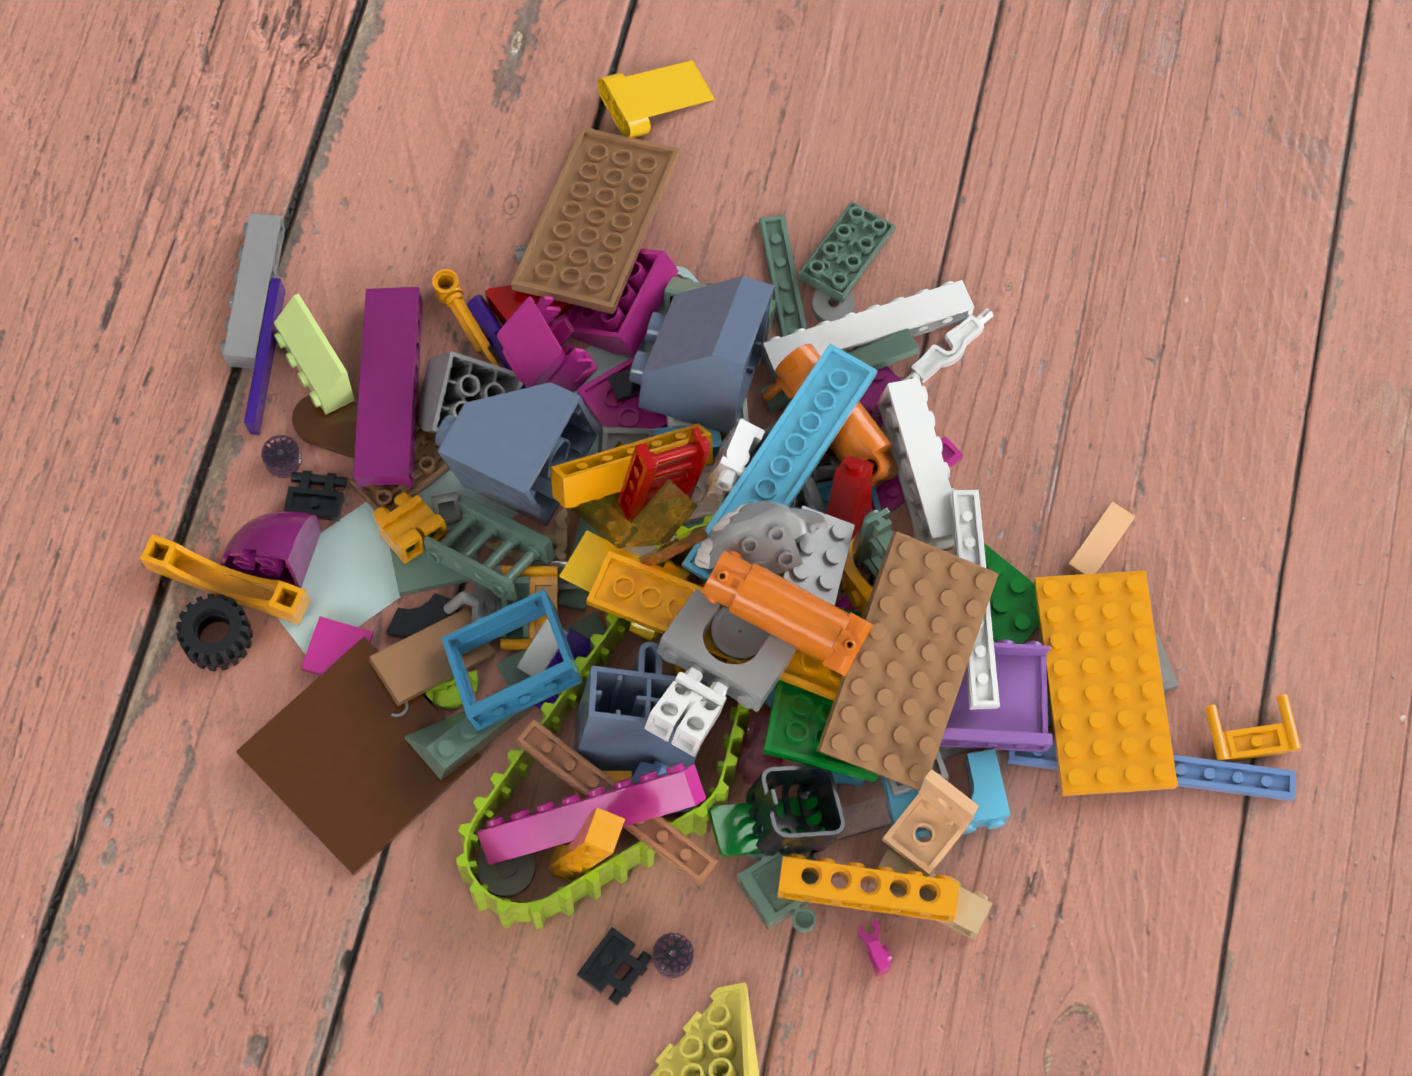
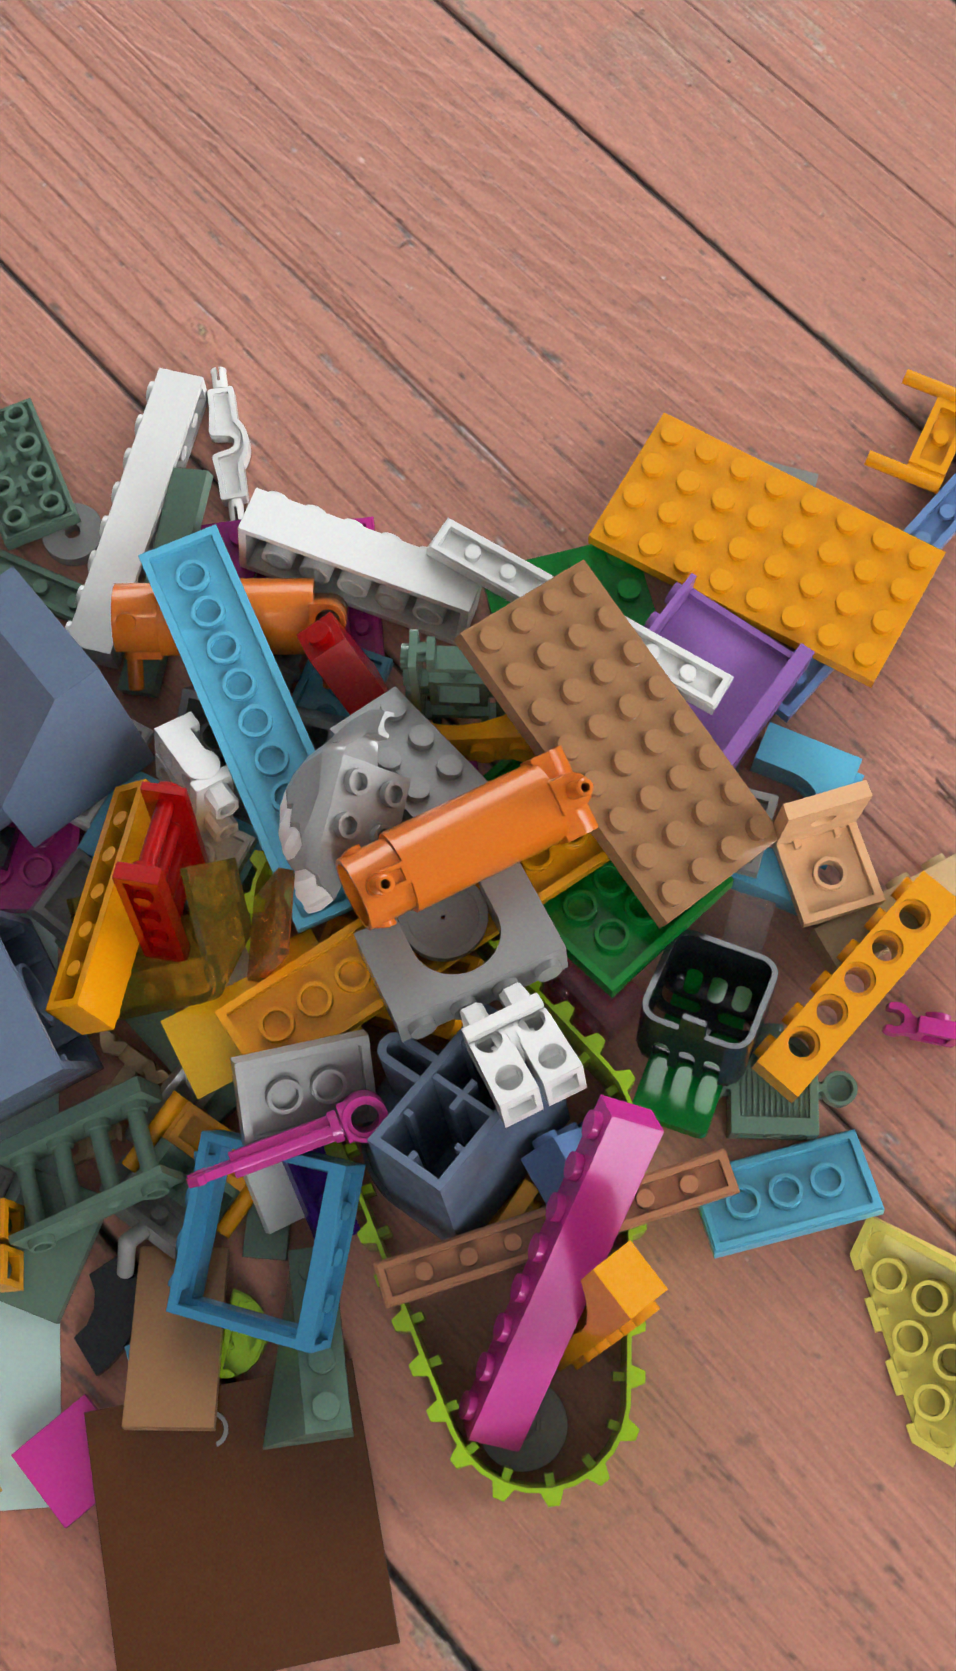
camera: 50 degrees left, 5 degrees up
(587, 648) = (297, 1140): none -> dark pink piece
(599, 622) = (301, 1083): none -> light grey plate
(607, 960) = (732, 1373): black plate -> none
(673, 955) = (777, 1282): wheel -> none
(726, 930) = (793, 1194): none -> medium azure tile
(1101, 540) = (587, 440): light nougat tile -> none

